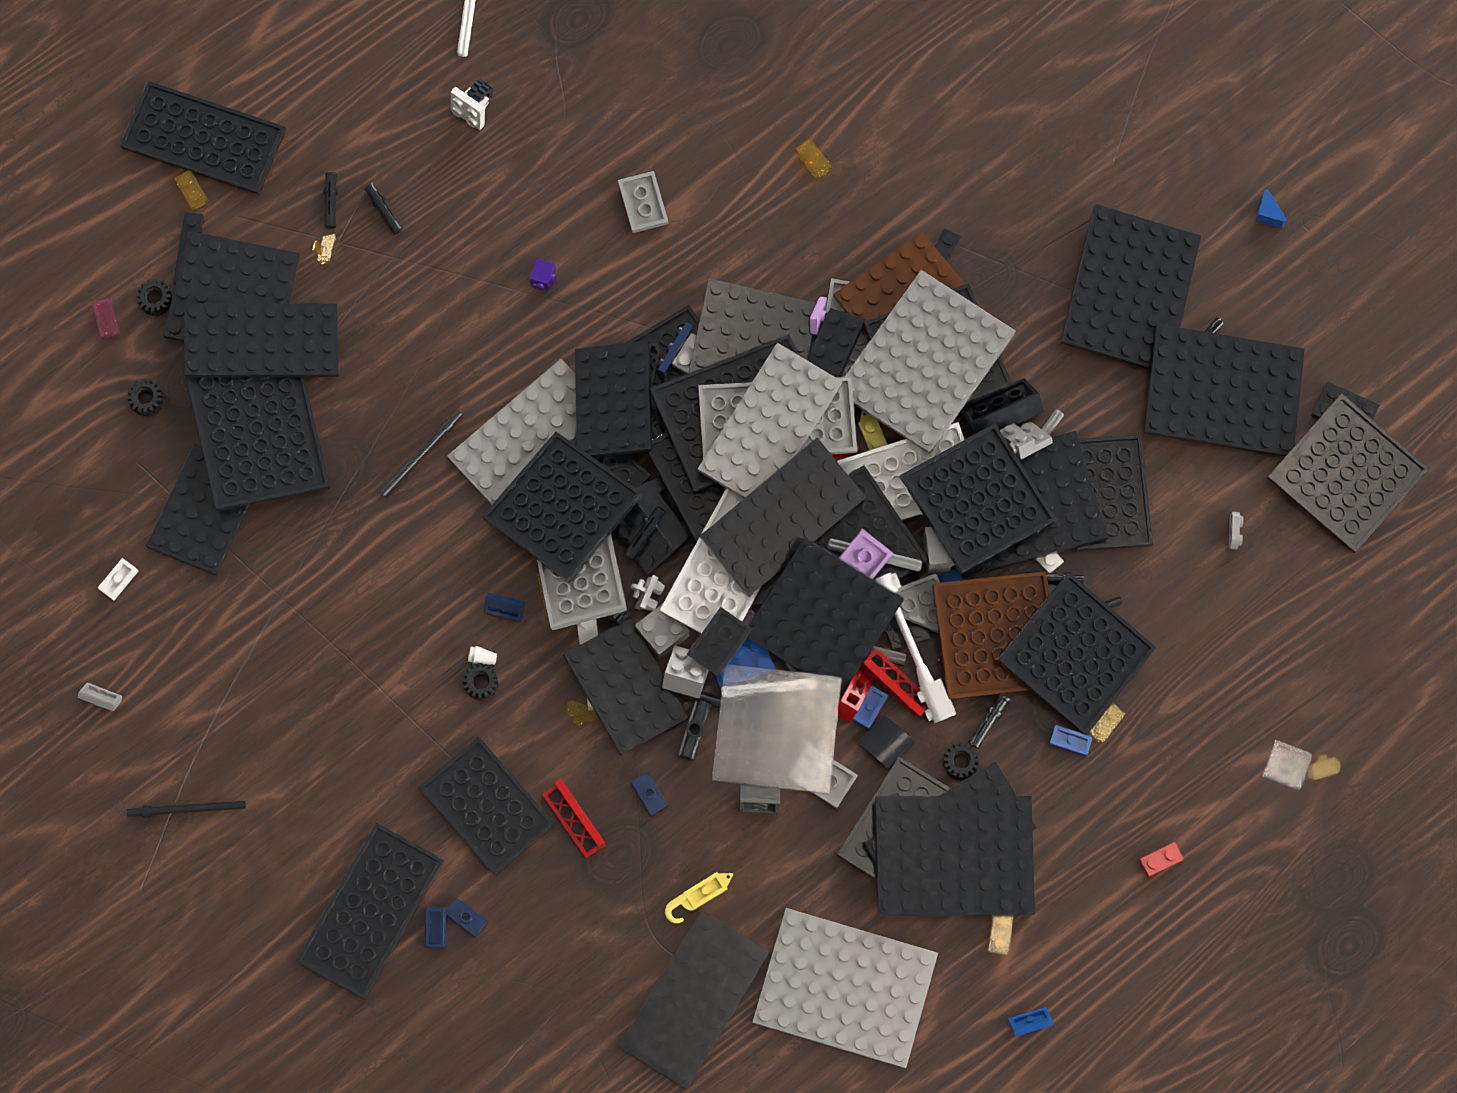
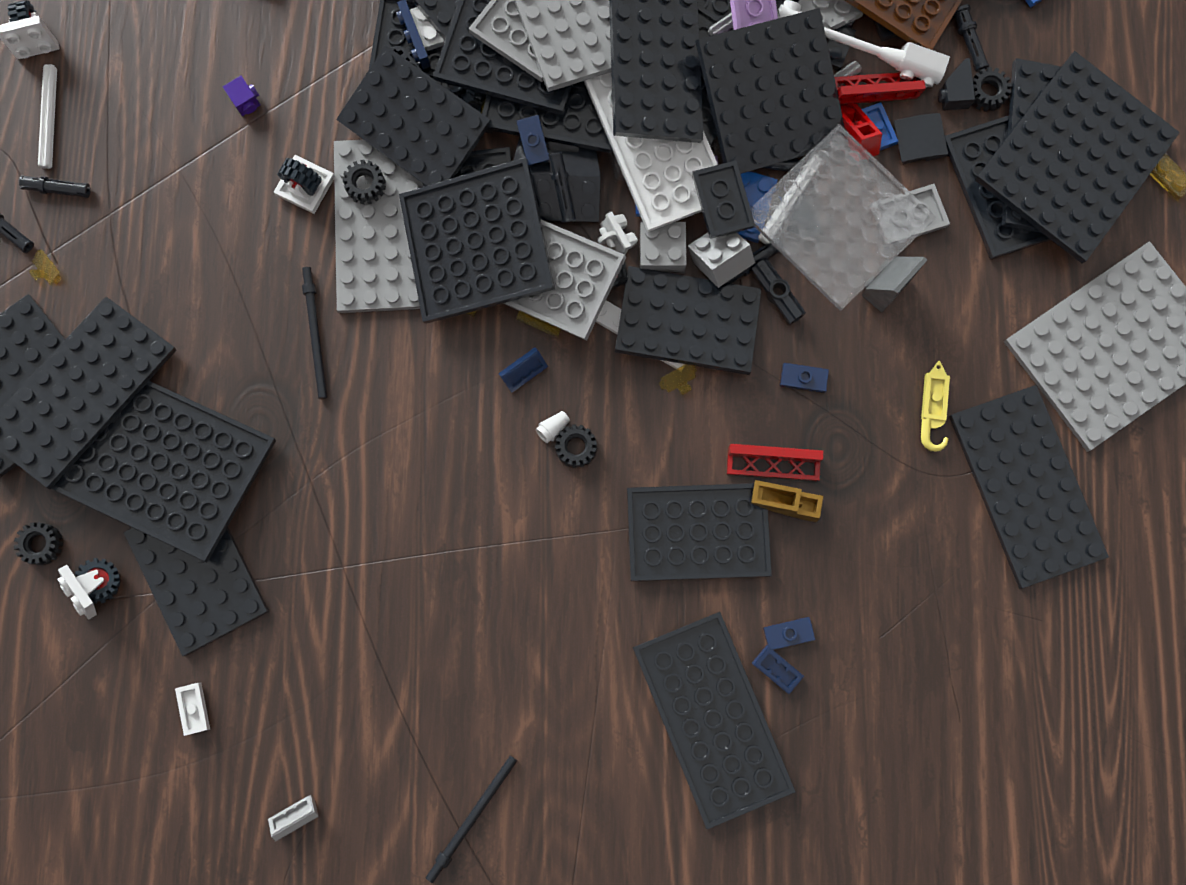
camera: 45 degrees left, 5 degrees up
(146, 451) = (90, 584): none -> plate
(427, 163) = (47, 116): none -> white axle
(515, 363) = (303, 183): none -> plate
(546, 391) = (364, 194): none -> black tyre
(552, 845) = (787, 501): none -> pearl gold slope
(660, 487) = (533, 140): none -> dark blue plate
(942, 737) = (958, 89): none -> black slope

